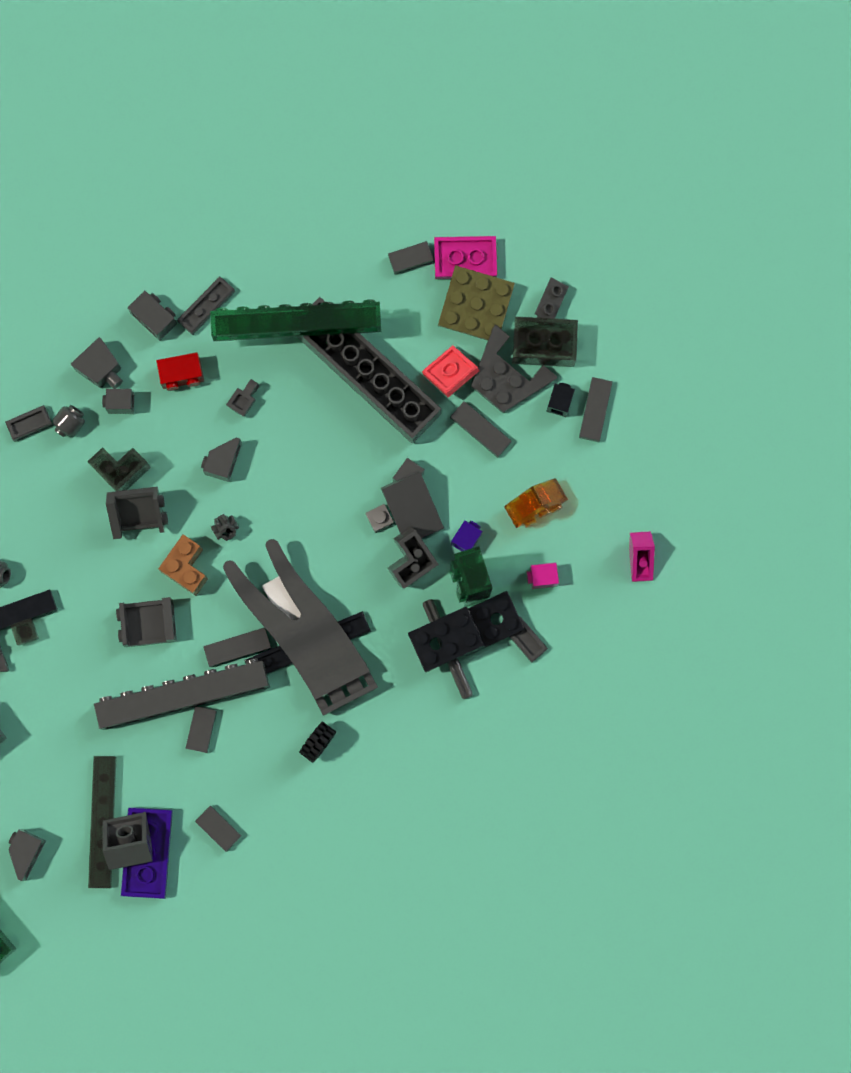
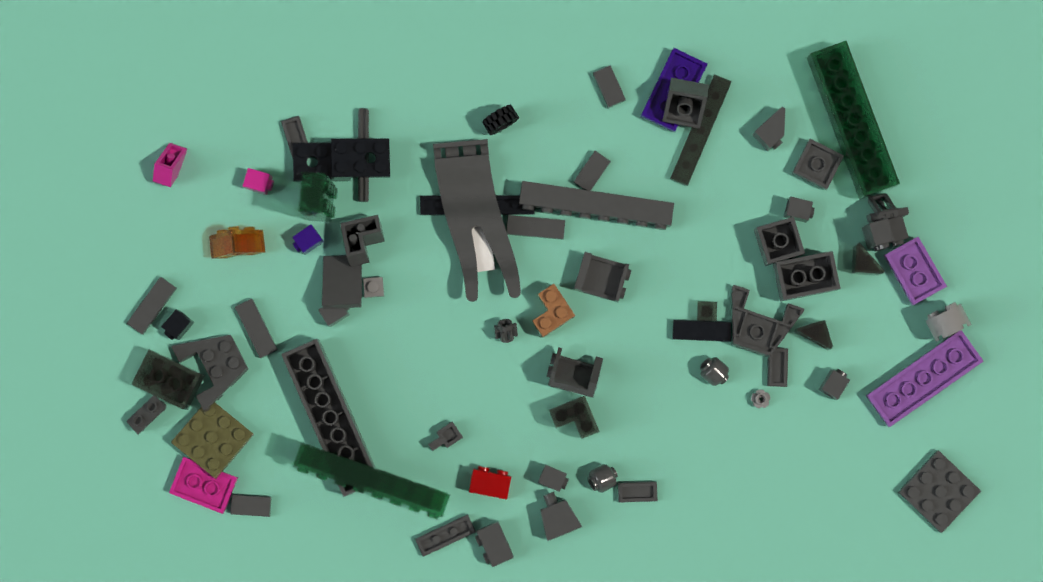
camera: 150 degrees left, 5 degrees up
(222, 460) = (485, 390): dark grey slope -> none
(450, 371) = (259, 387): coral tile -> none

